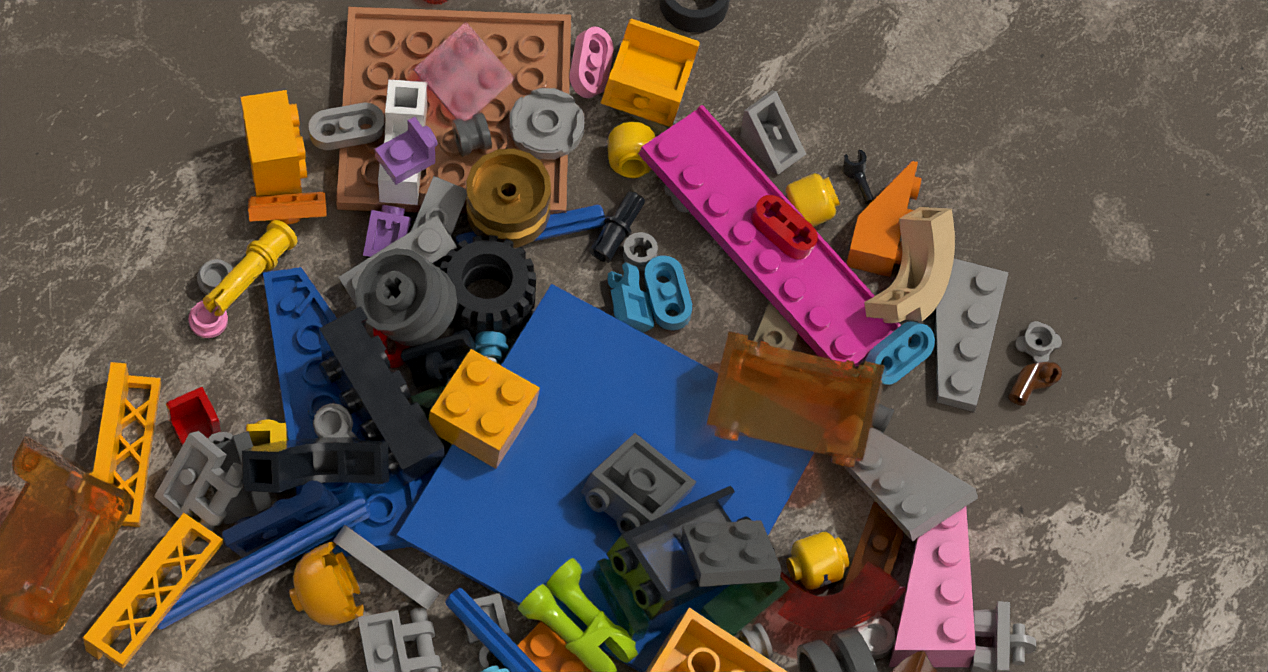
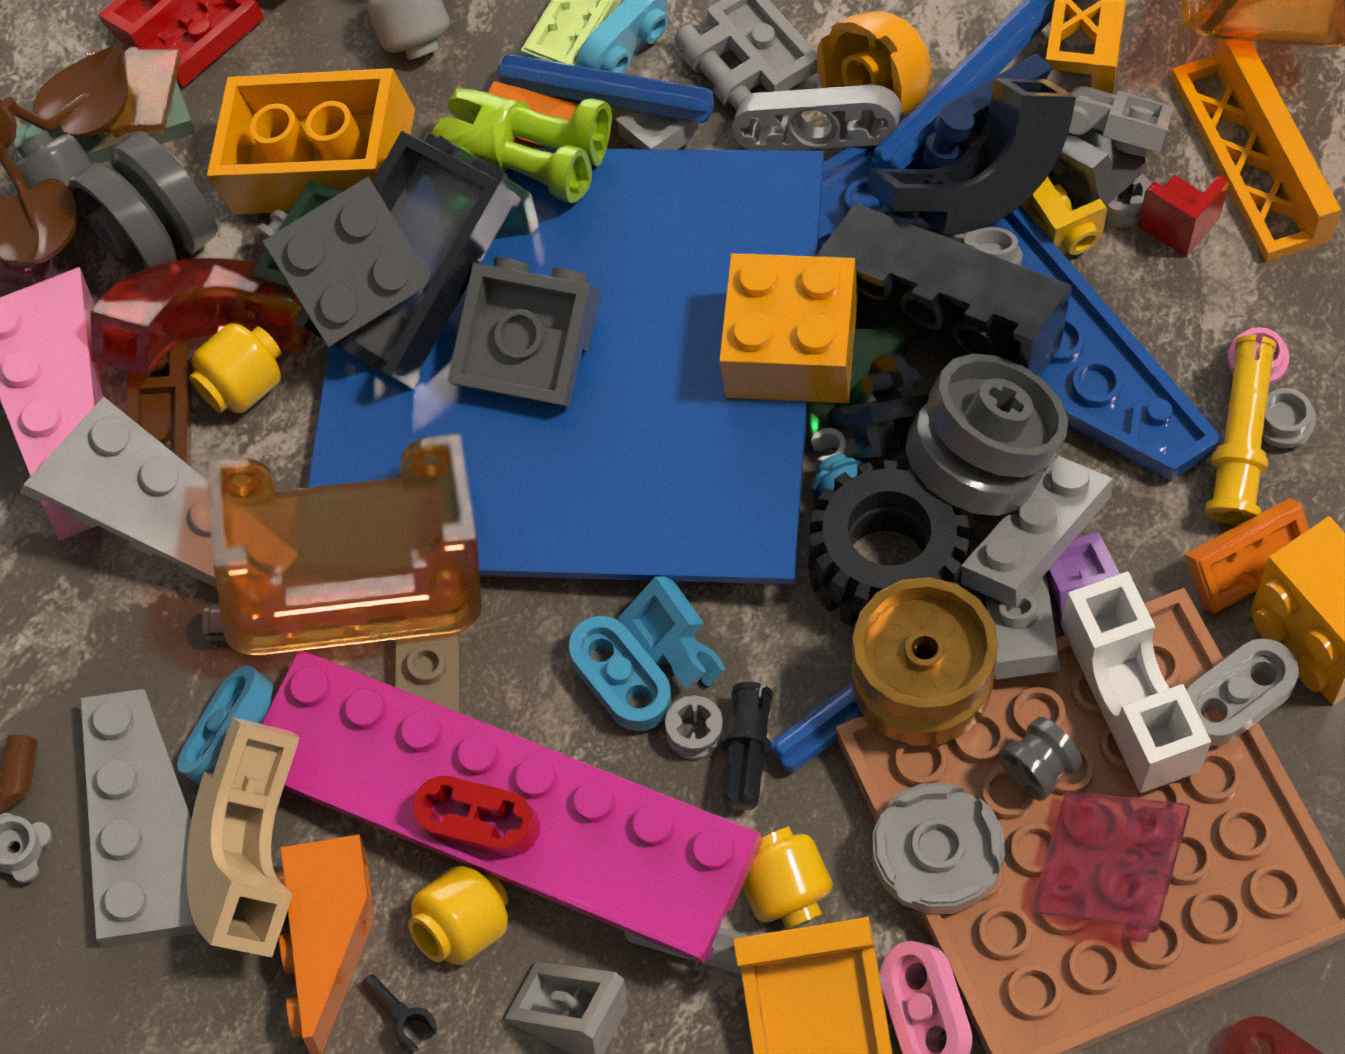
camera: 165 degrees right, 0 degrees up
(408, 152) = (1106, 616): medium lavender bracket -> none

